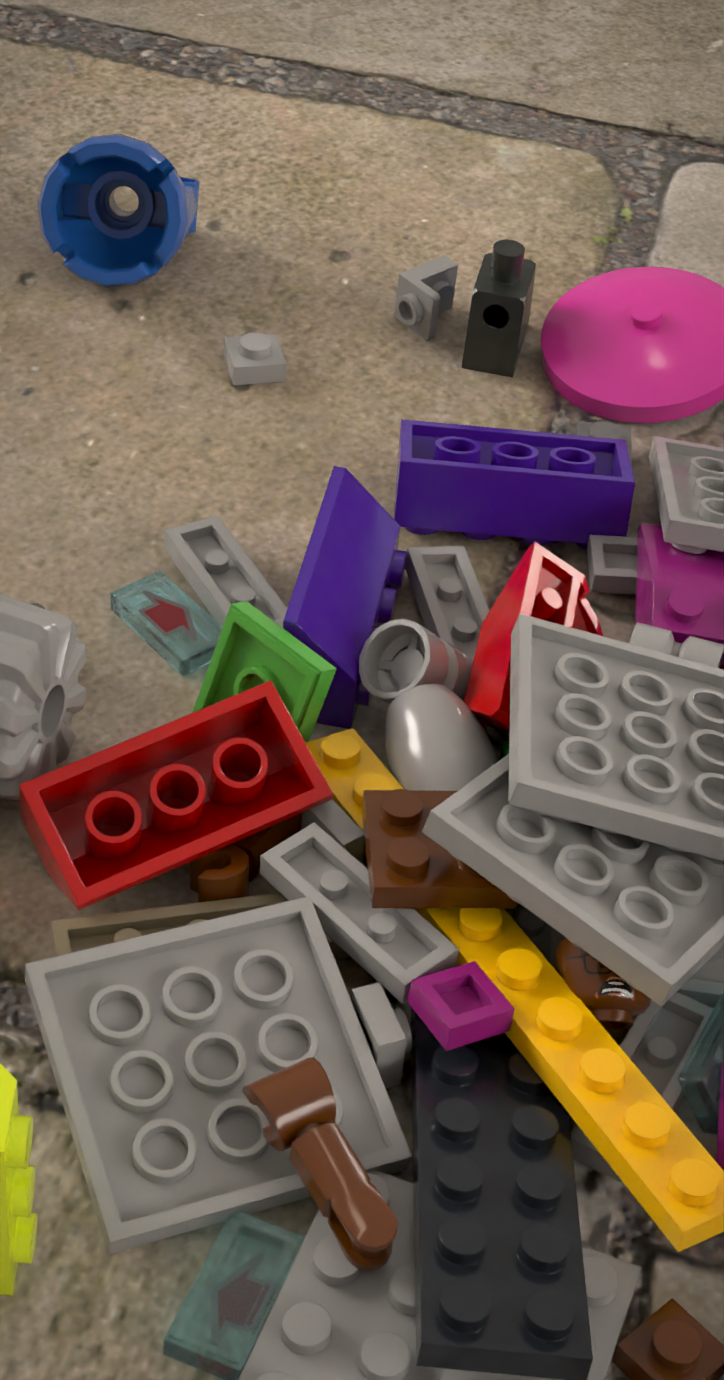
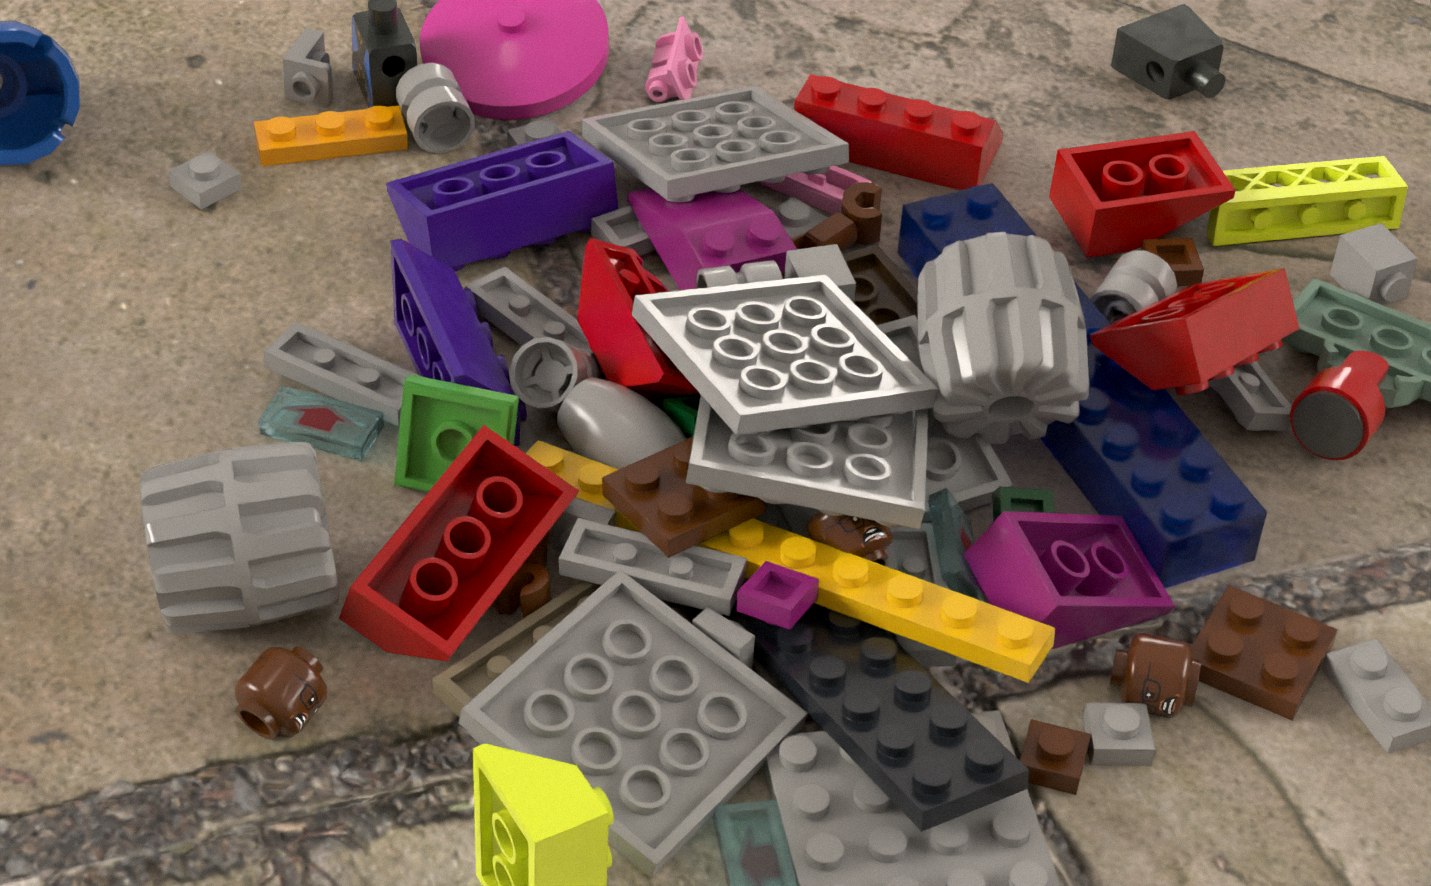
camera: 30 degrees left, 0 degrees up
(302, 1118) = (729, 709): reddish brown piece -> none
(405, 363) = (330, 135): none -> light orange plate
(516, 373) = (435, 108): none -> light grey wheel

